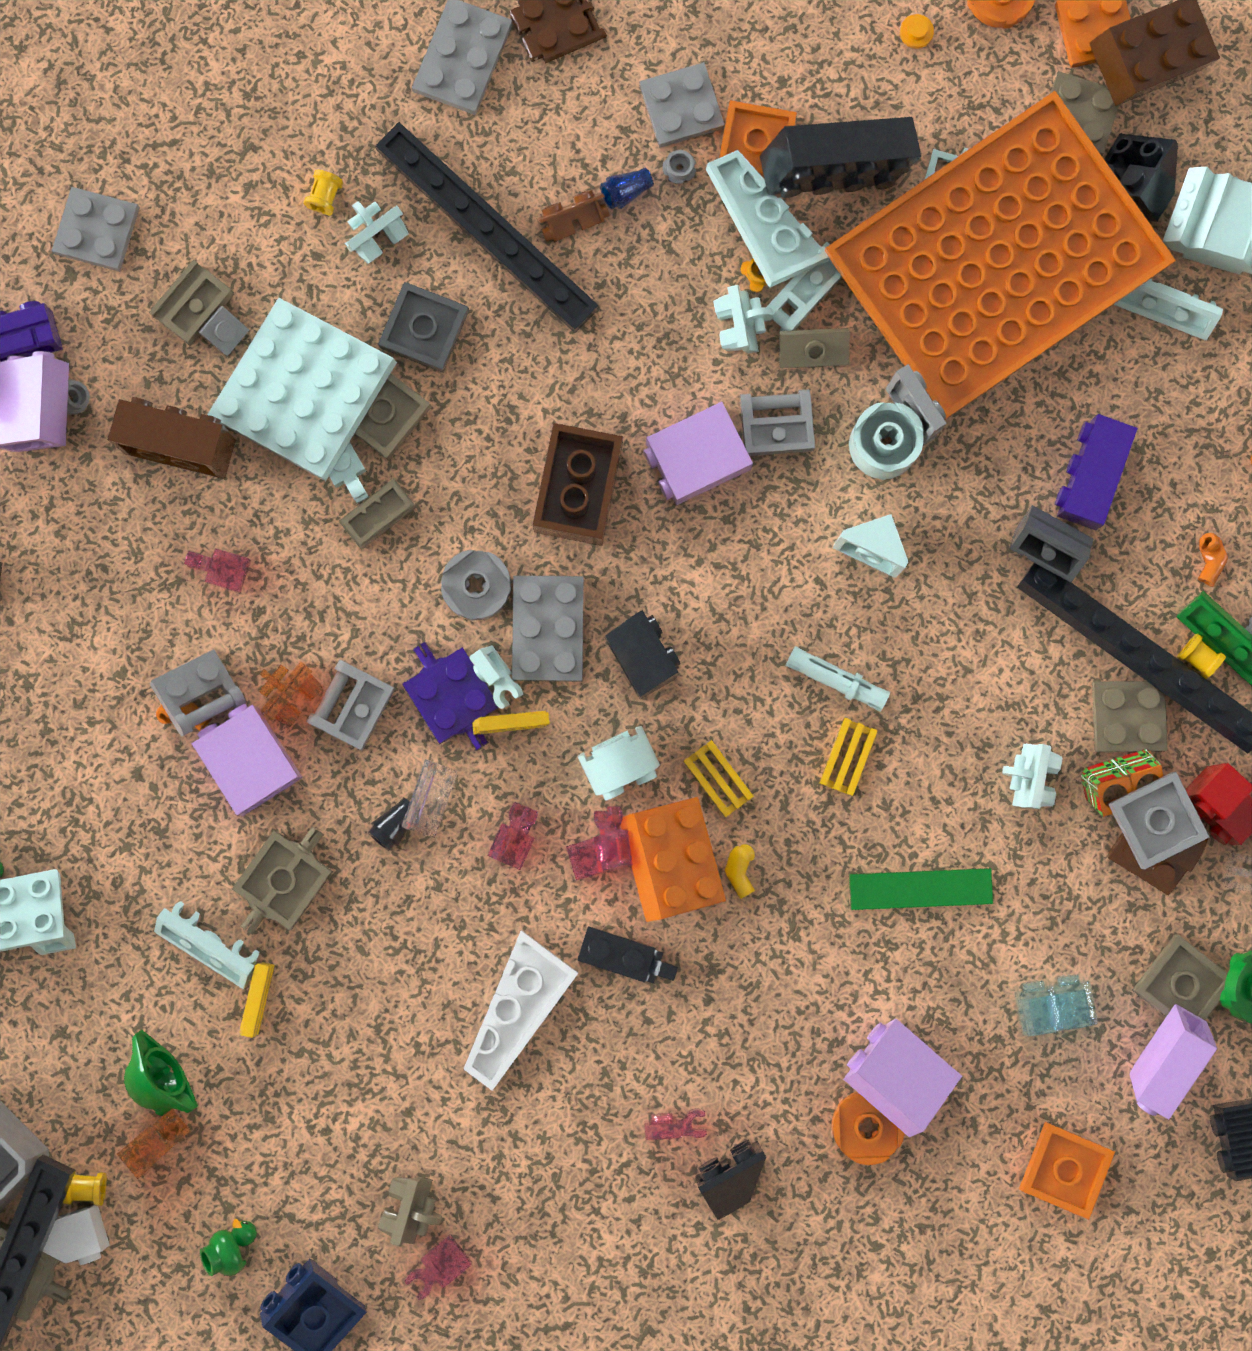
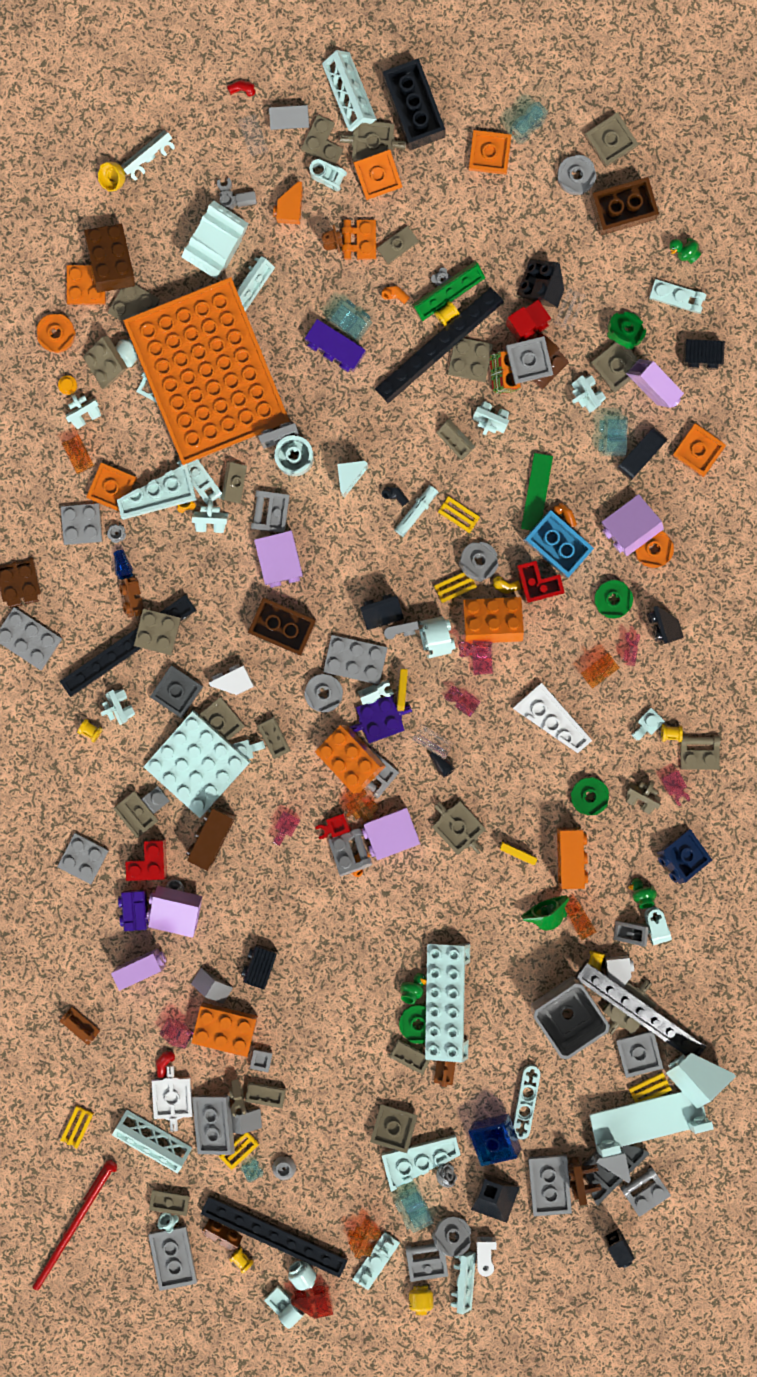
camera: 75 degrees left, 5 degrees up
(106, 349) = (152, 866): none -> red brick
(150, 1245) = (631, 933): none -> light grey slope
(170, 1291) = (657, 929): none -> light aqua piece
(205, 946) = (484, 874): light aqua plate -> none
(240, 658) = (336, 826): none -> red plate
(265, 1101) = (571, 858): none -> orange brick
(365, 654) = (350, 758): none -> orange brick
(368, 1111) = (589, 785): none -> green plate
(462, 423) = (234, 682): none -> white slope
(501, 1302) = (700, 758): none -> dark tan plate
(521, 269) = (157, 632): none -> dark tan plate
(537, 1236) = (671, 733): none -> yellow bush
(548, 1190) = (649, 723): none -> light aqua plate
(622, 705) = (408, 629): none -> light grey plate
(623, 1076) = (600, 670): none -> clear orange hips
(624, 956) = (538, 656): black hinge -> none
(748, 923) = (536, 588): none -> red brick
(776, 1083) = (621, 591): none -> green plate
(792, 804) = (489, 561): none -> light grey plate
(801, 70) = (78, 454): none -> clear orange hips
(837, 948) = (558, 544): none -> dark azure brick
(839, 156) = (134, 445): black brick -> none
(860, 635) = (395, 493): none -> black arm
(866, 54) = (75, 415): none -> light aqua hips
(896, 953) = (561, 508): none -> orange arm
(972, 81) = (105, 362): none -> dark tan plate
(981, 720) = (455, 439): none -> dark tan plate
(992, 112) = (127, 352): none -> light aqua head
(1036, 1066) = (642, 453): none -> black beam
(1051, 543) = (369, 380): dark grey brick -> none
(1118, 938) = (585, 394): none -> light aqua hips
(1145, 170) = (175, 281): black slope -> none
(1147, 489) = (350, 320): none -> clear light blue brick

